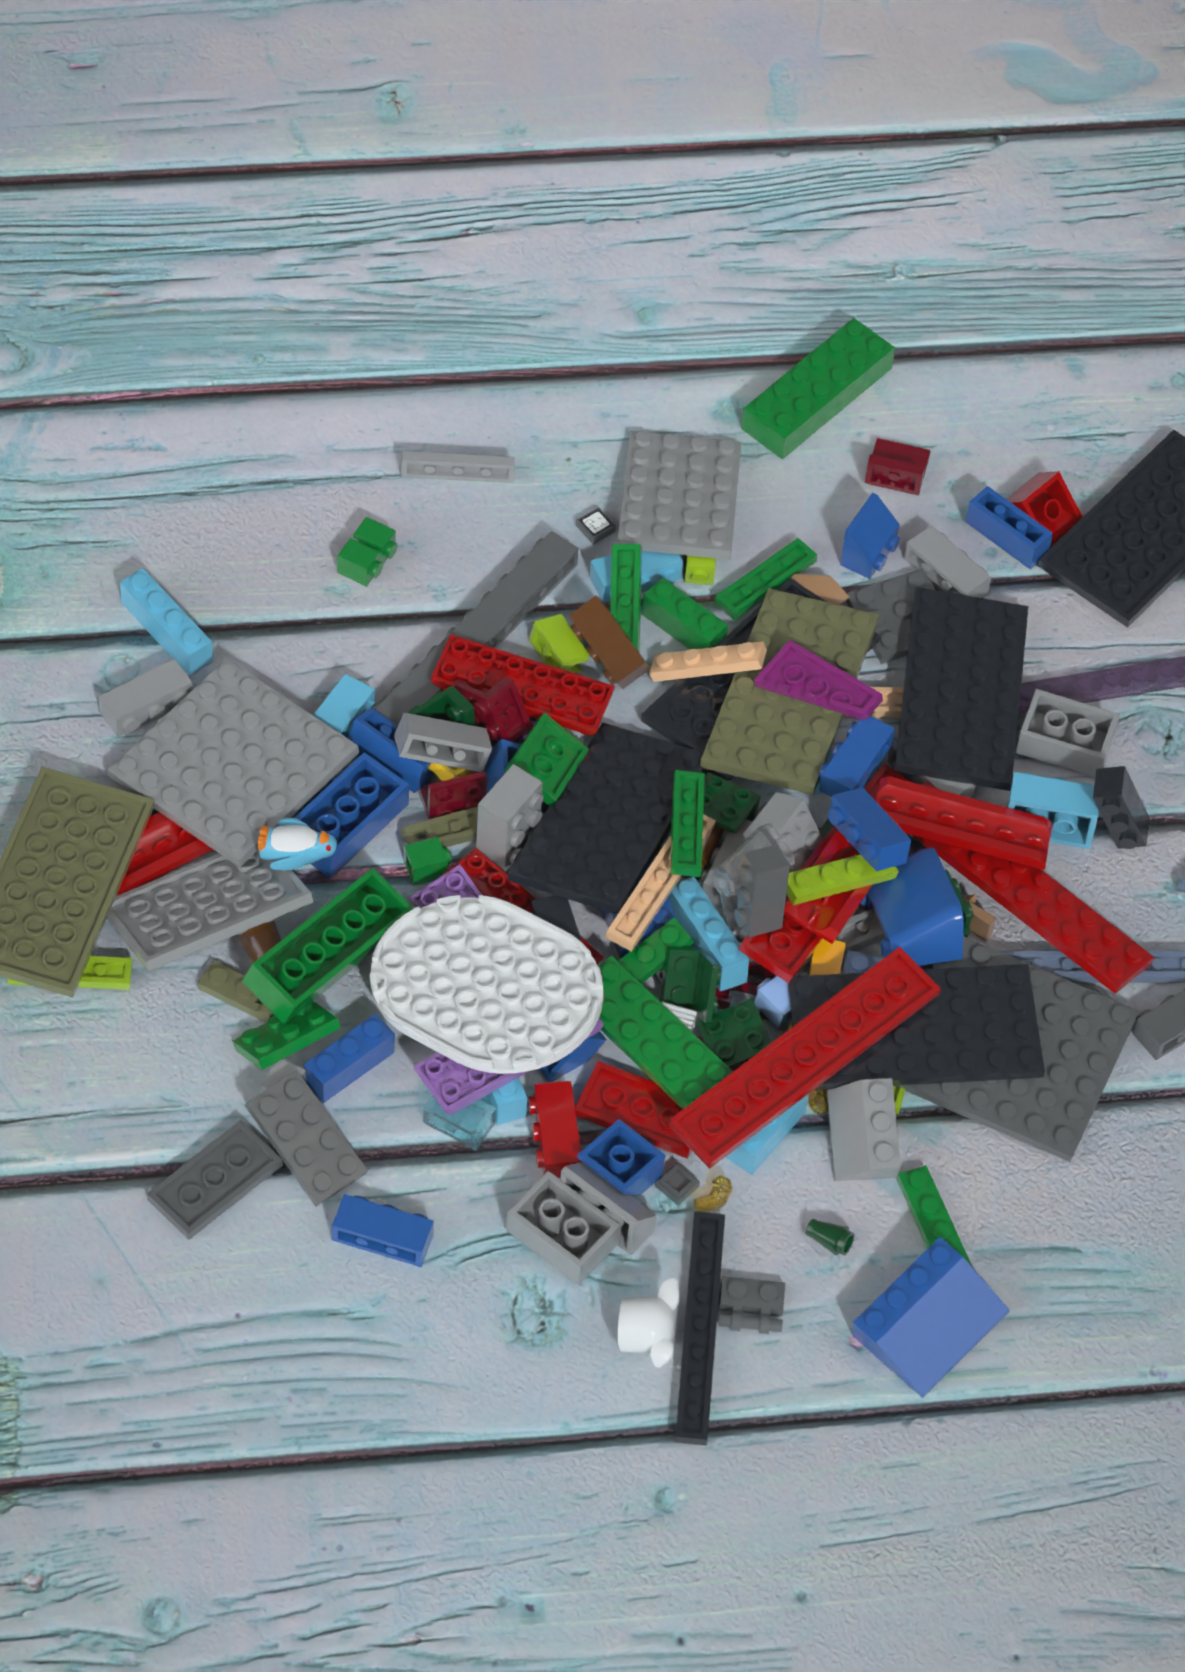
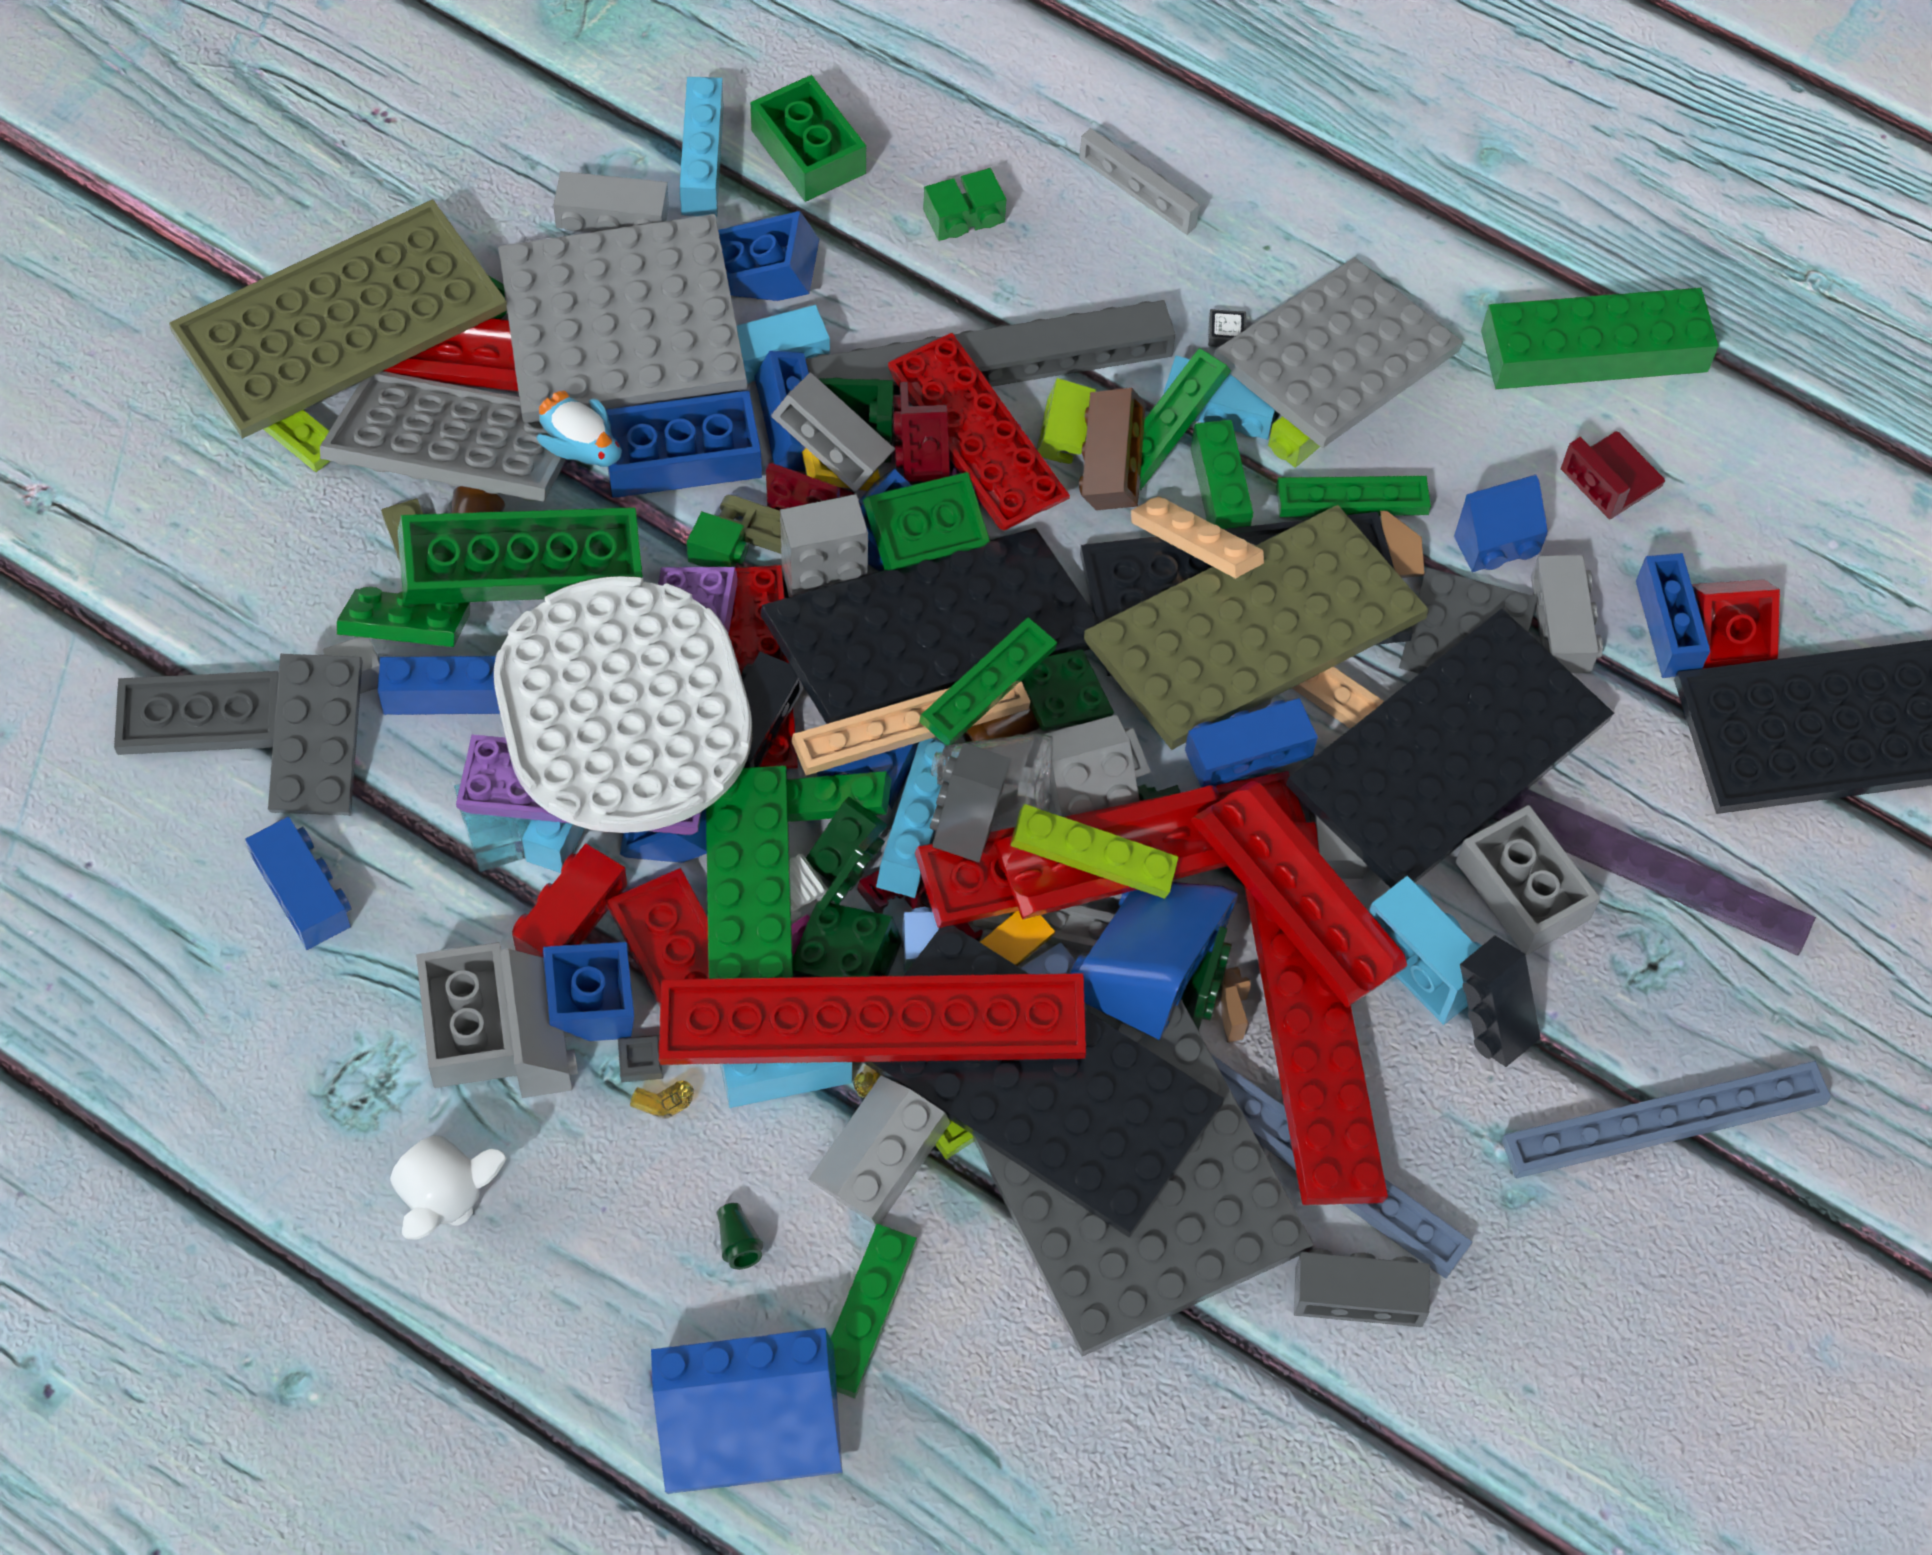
camera: 40 degrees right, 5 degrees up
(231, 572) = (808, 138): none -> green brick
(283, 661) = (770, 257): none -> blue slope
(700, 1329) = (503, 1231): black plate -> none
(752, 1297) = (594, 1238): dark grey plate -> none
(815, 681) = (1278, 629): magenta wing -> none
(869, 829) = (1168, 822): blue brick -> none

